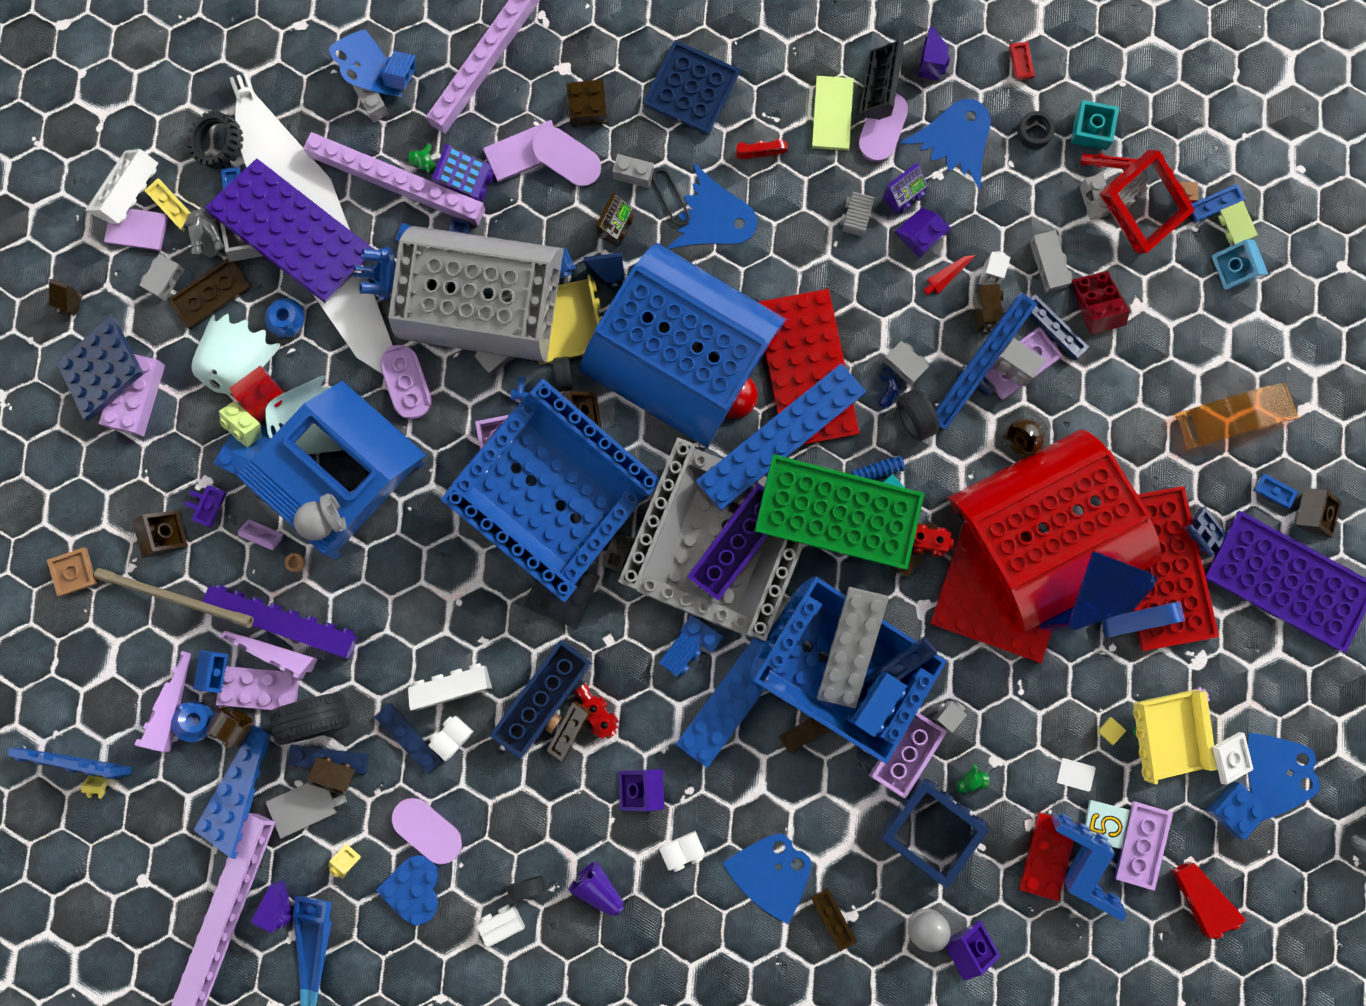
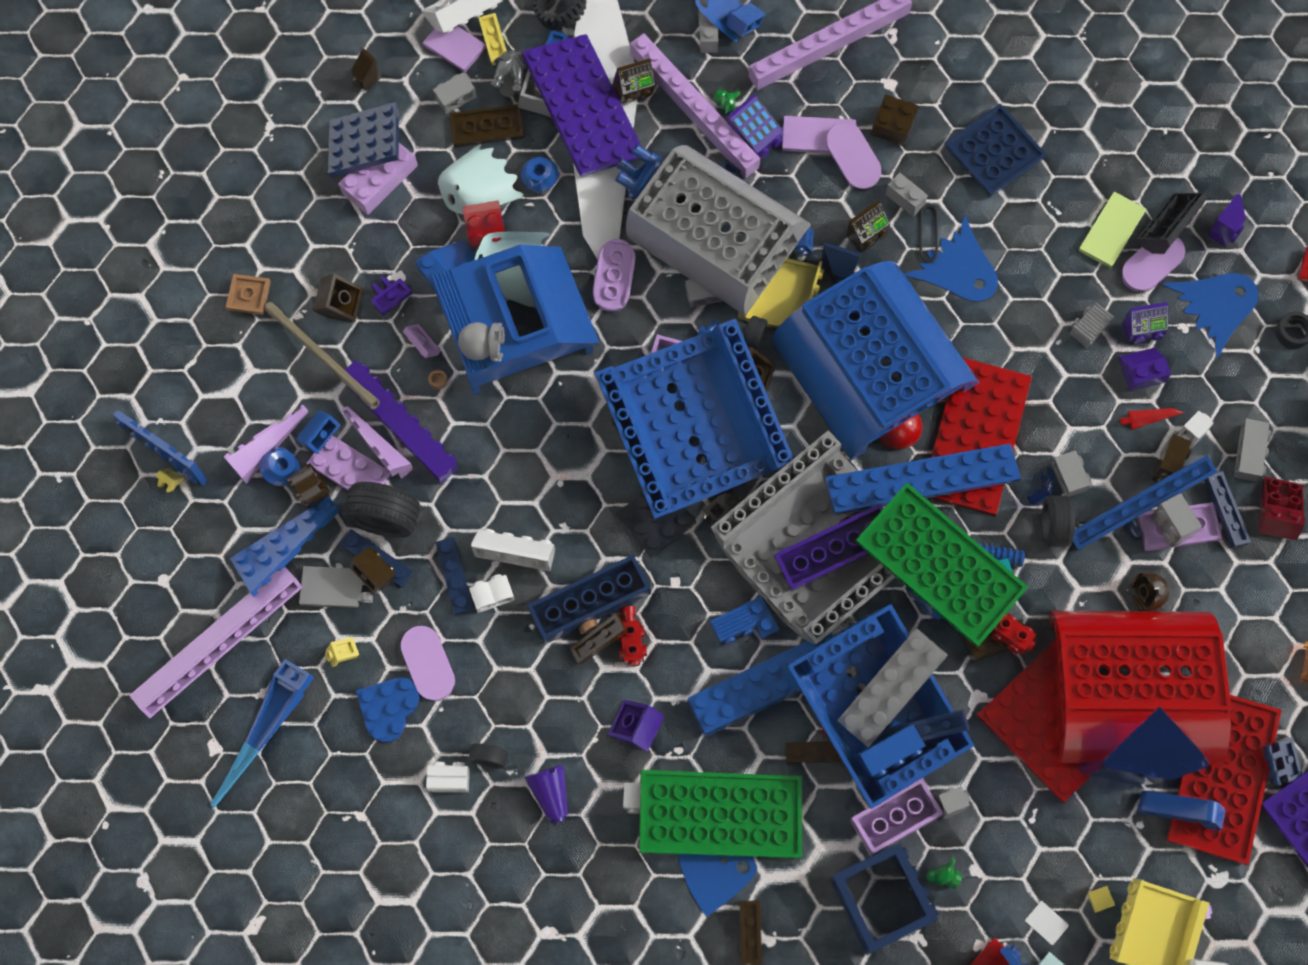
camera: 30 degrees right, 10 degrees down
(240, 424) = (455, 240): yellowish green brick -> none
(274, 909) = (262, 657): dark purple slope -> none
(326, 184) = (634, 81): none -> slope
(756, 832) = (720, 814): none -> green plate
(761, 149) = (1031, 229): red plate -> none

